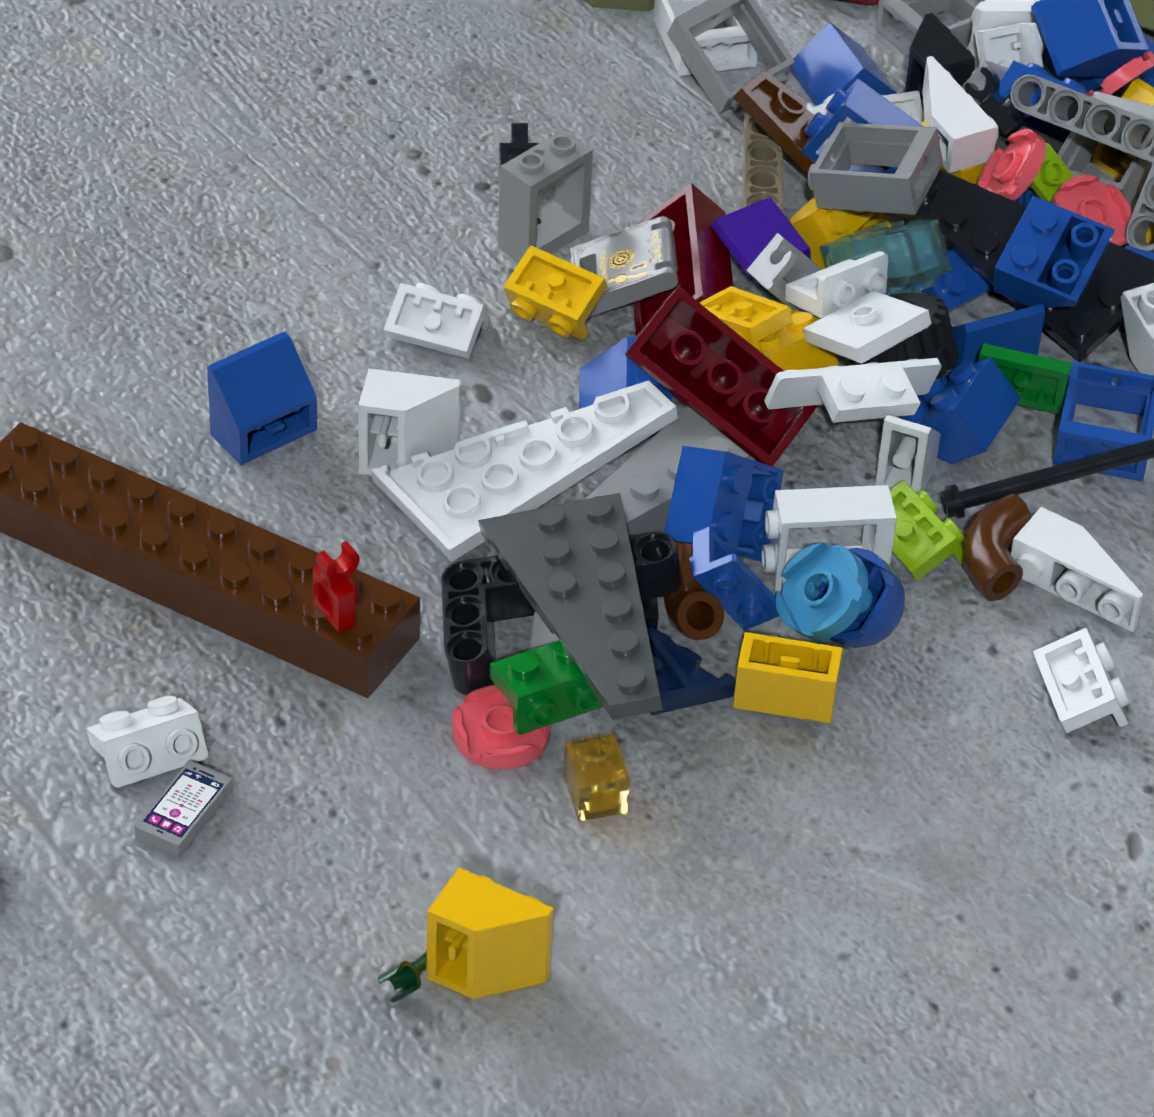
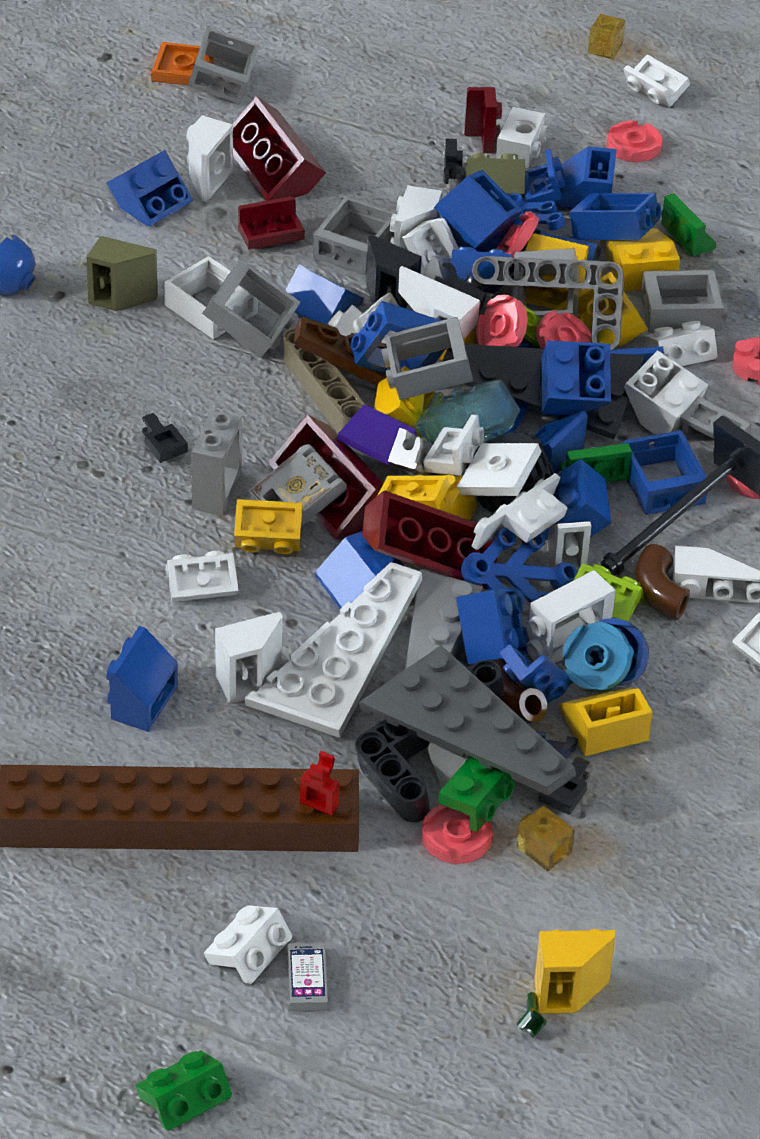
camera: 30 degrees left, 0 degrees up
(675, 733) = (570, 793): none -> black plate
(806, 453) = (513, 569): none -> blue plant

